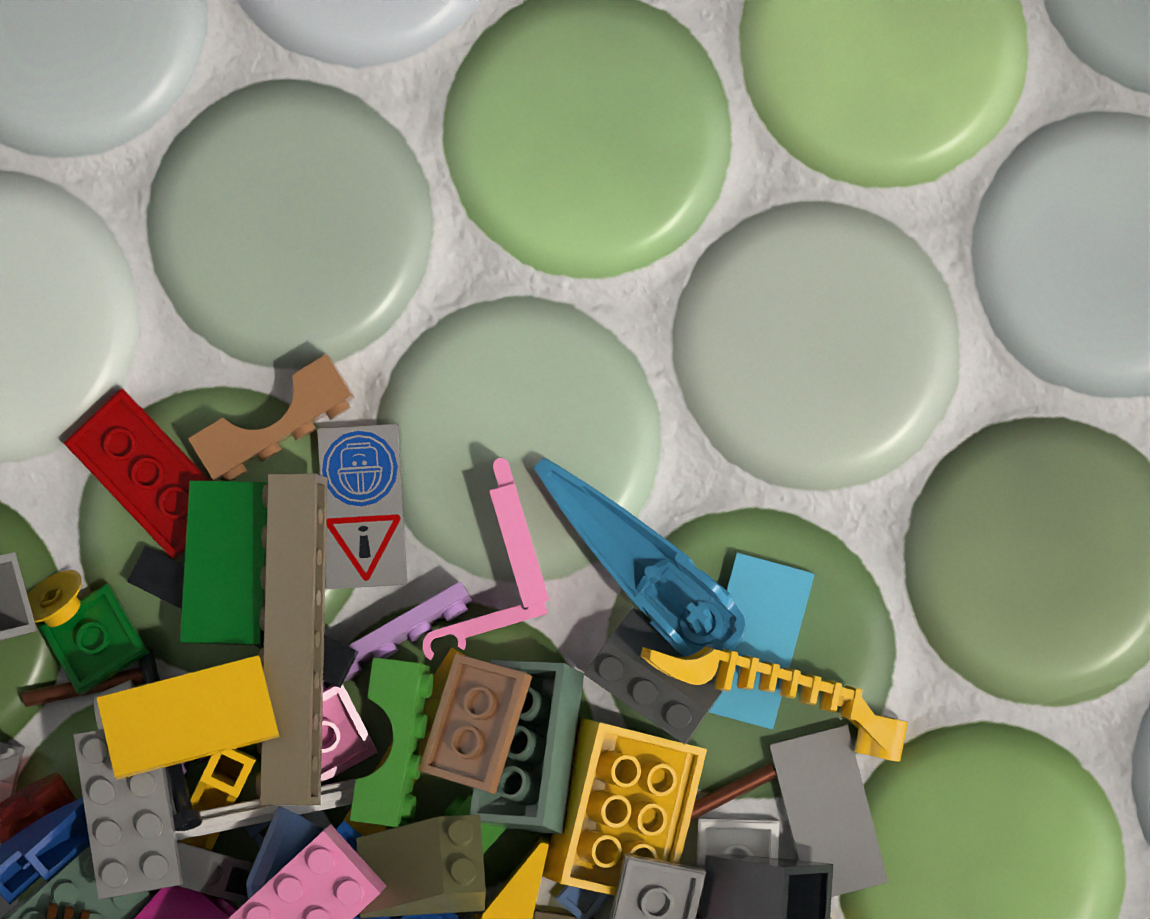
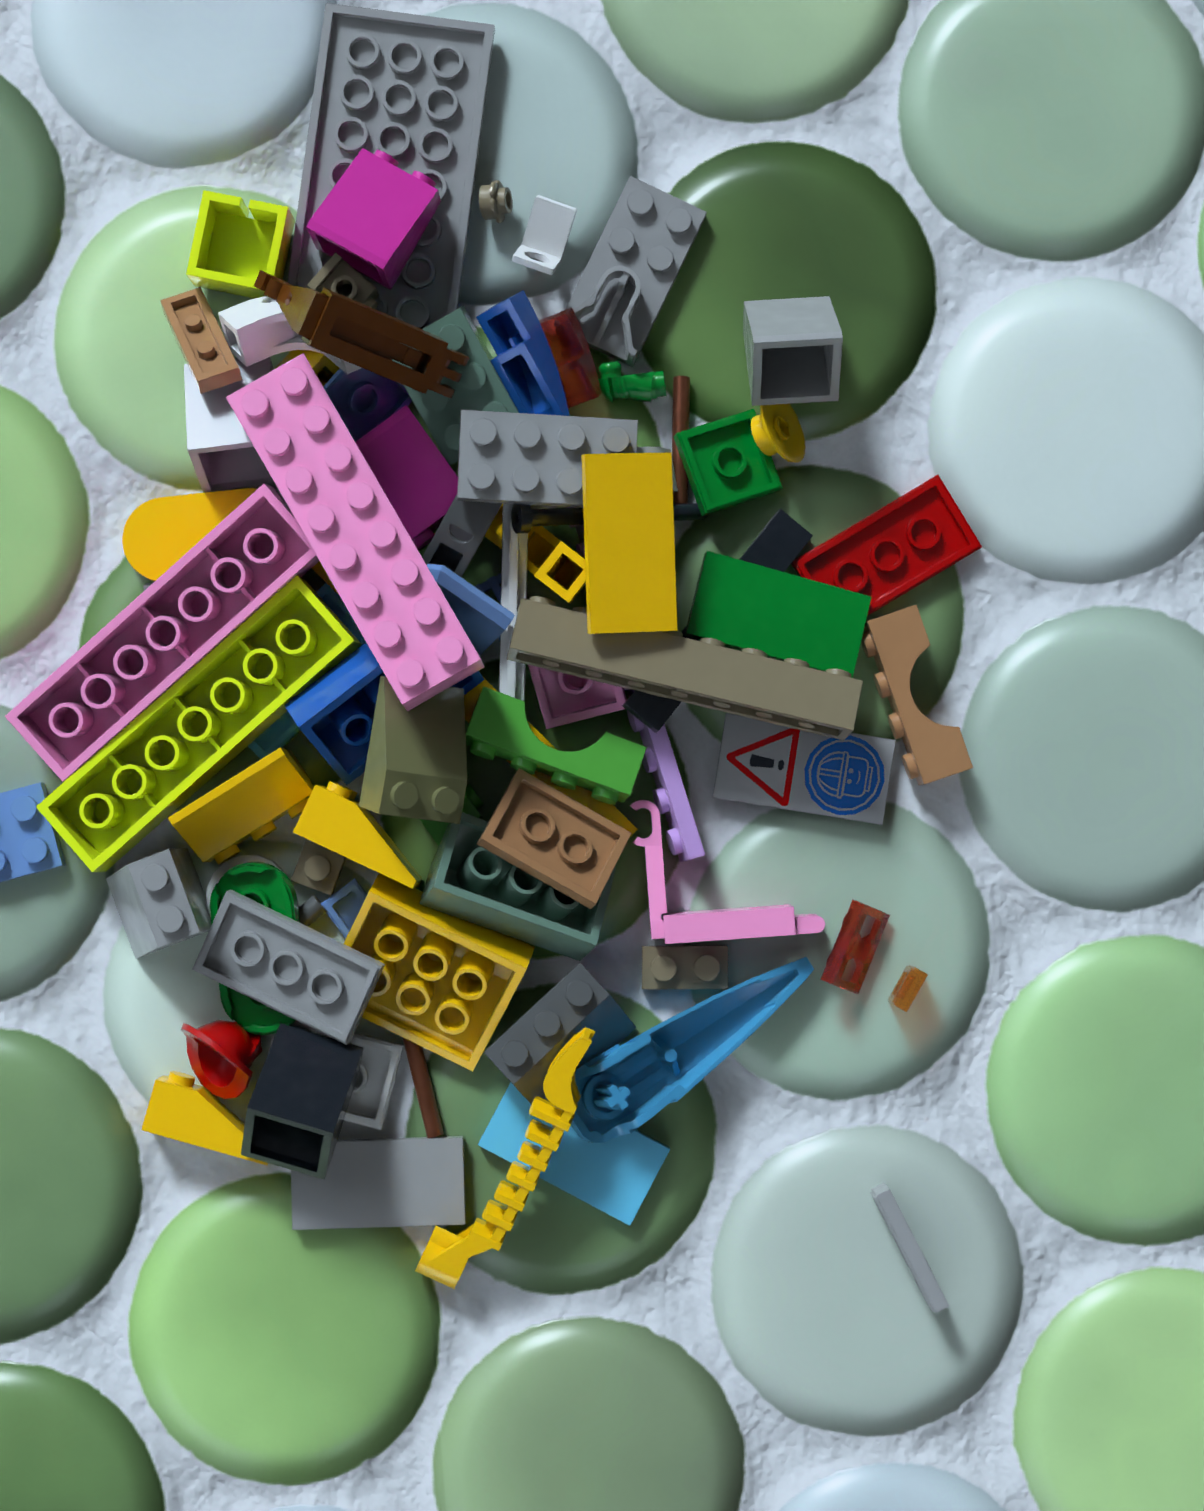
camera: 95 degrees right, 0 degrees up
(42, 739) = (638, 386): none -> green arm
(514, 424) = (855, 947): none -> clear red piece
(541, 368) = (907, 987): none -> clear orange tile
(568, 575) = (685, 967): none -> dark tan plate
(777, 315) = (909, 1248): none -> light grey tile

